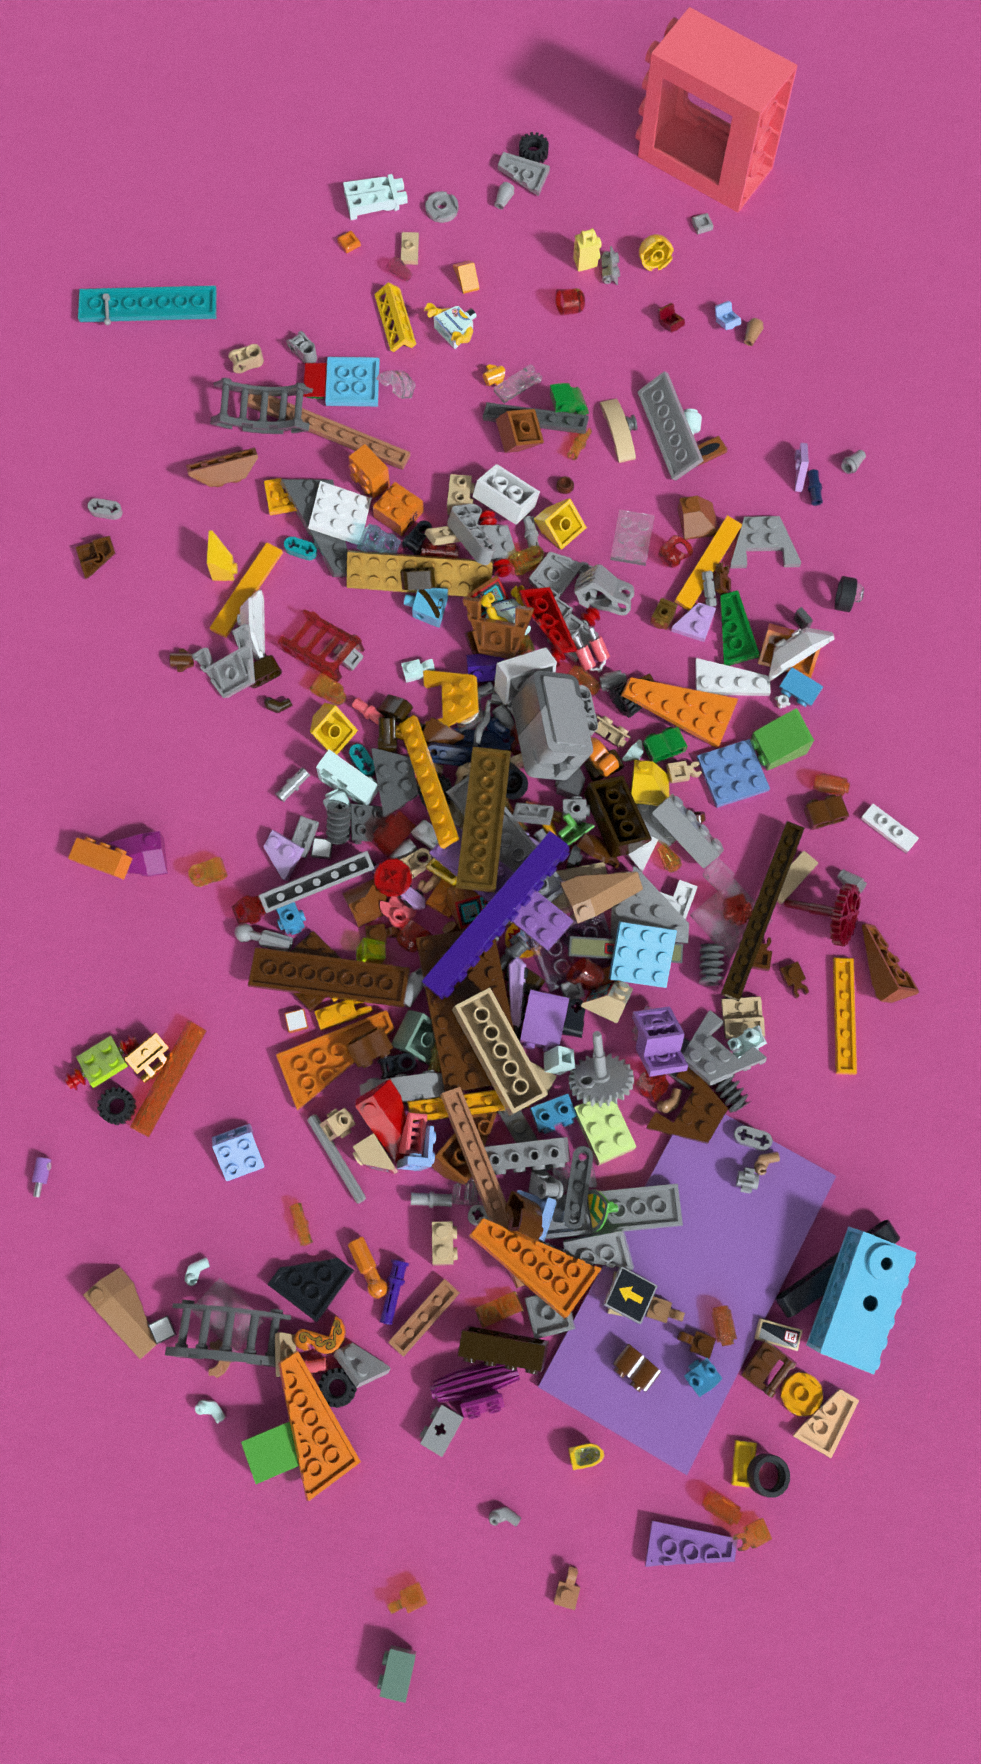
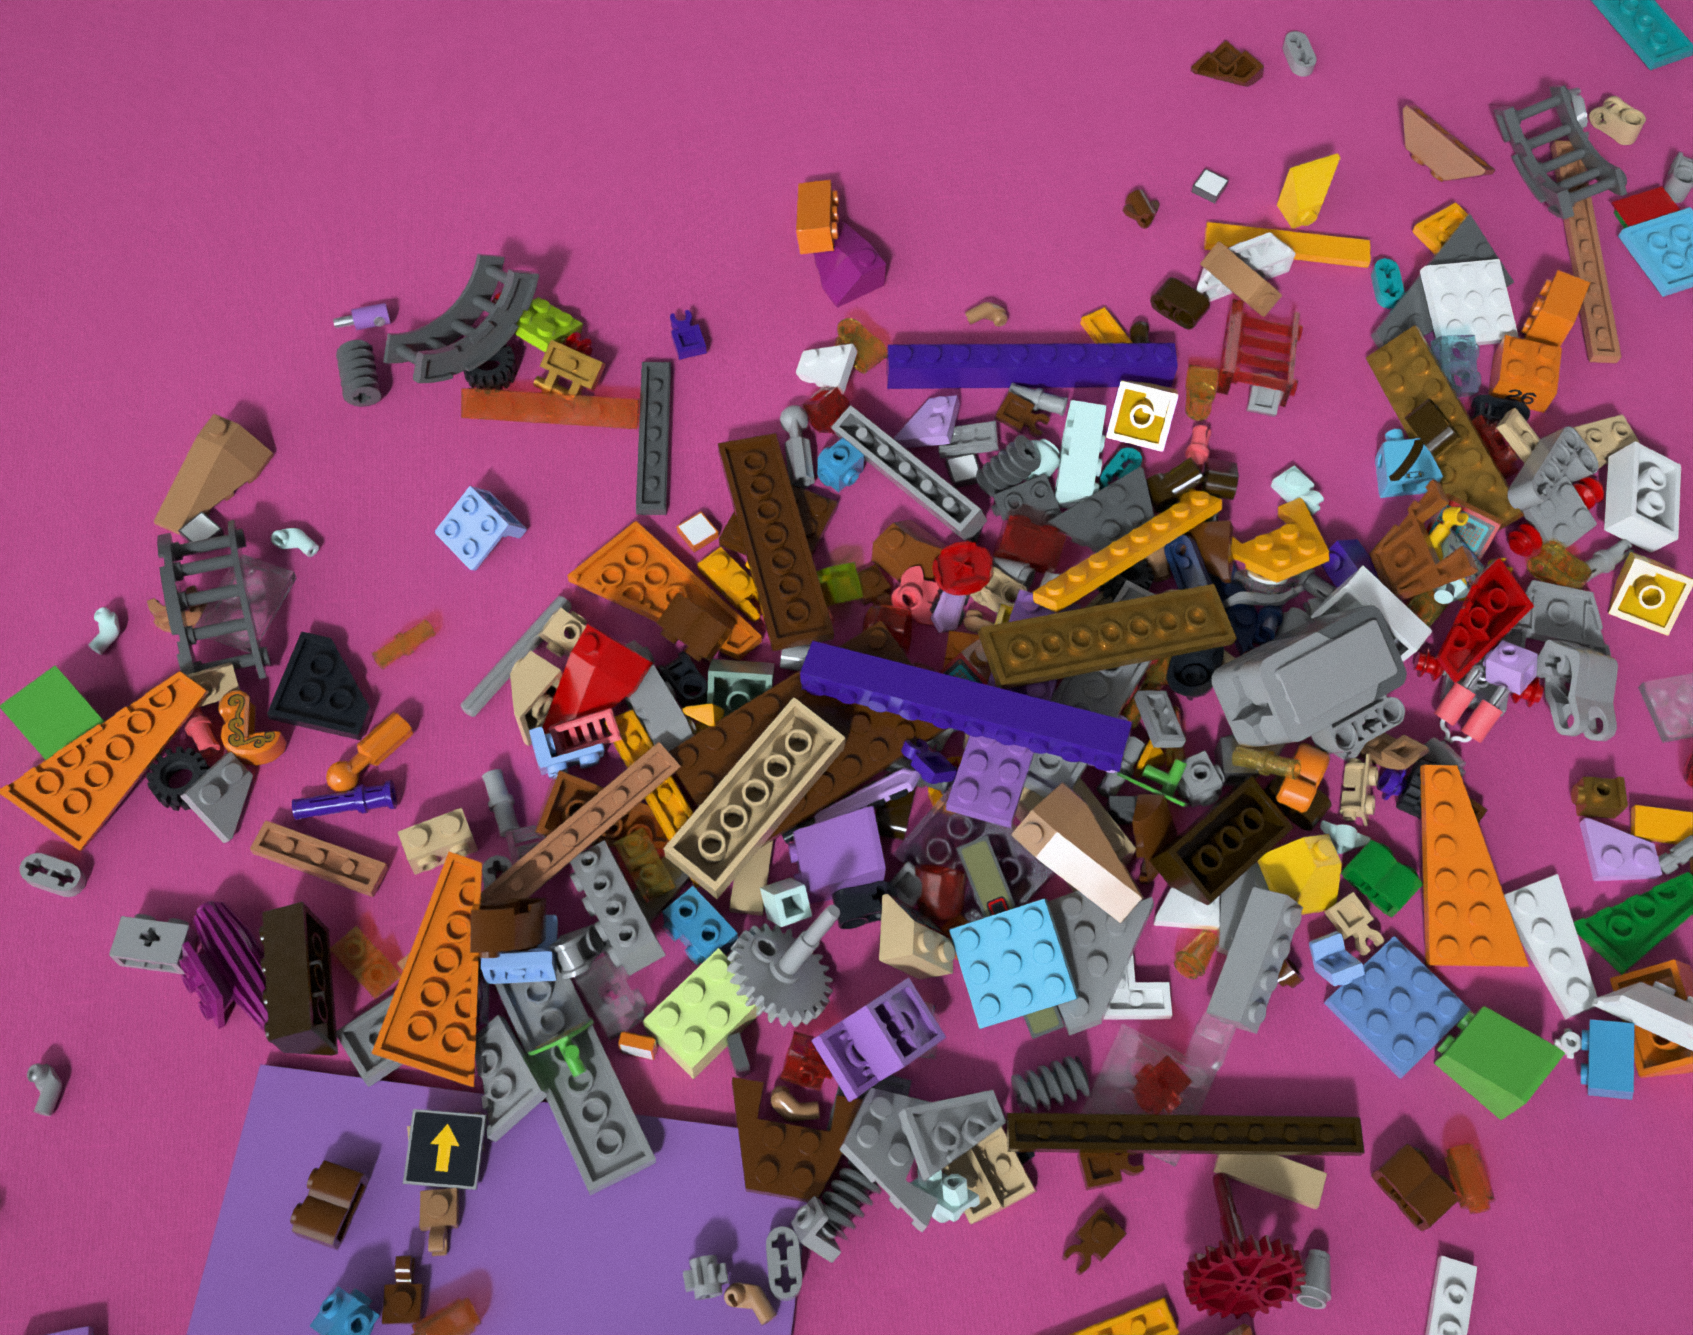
camera: 65 degrees right, 10 degrees down
(87, 1193) = (358, 373): none -> dark grey piece
(105, 1102) = (429, 346): none -> dark grey fence
(153, 974) = (687, 338): none -> dark purple plate
(182, 612) = (1210, 186): none -> tile
(216, 784) = (988, 311): none -> medium nougat arm
(216, 1022) = (653, 439): none -> dark grey tile
(217, 897) = (827, 366): none -> white wing
(233, 671) = (1161, 264): light grey wing -> none
(235, 377) = (1579, 108): none -> light grey tile
(263, 723) = (1103, 328): none -> light orange tile
(268, 779) = (1029, 365): none -> dark purple brick
(270, 629) = (1241, 279): none -> medium nougat slope
(298, 800) = (1016, 413): none -> reddish brown plate
(366, 1479) = (50, 881): none -> light grey beam
(429, 1061) = (705, 713): none -> light orange slope
(506, 1130) = (644, 865): none -> clear yellow slope
(516, 948) = (930, 765): none -> dark purple plate
(578, 1187) = (589, 999): dark grey plate -> none
(579, 618) = (1510, 666): none -> lavender brick
(585, 679) = (1419, 715): clear orange head -> none
(585, 1455) = (167, 1175): rock -> none
(586, 771) = (1266, 762): none -> clear yellow pin
(604, 700) = (1394, 752): none -> medium nougat slope
(607, 1171) = (637, 1045): none -> orange tile
(614, 712) = (1392, 782): none -> dark purple plate
(634, 1120) = (738, 1055): none -> dark grey tile
(700, 791) = (1333, 960): none -> light blue bracket
(718, 1024) = (949, 1128): none -> light grey wing
(743, 1115) = (814, 1231): none -> light grey bracket

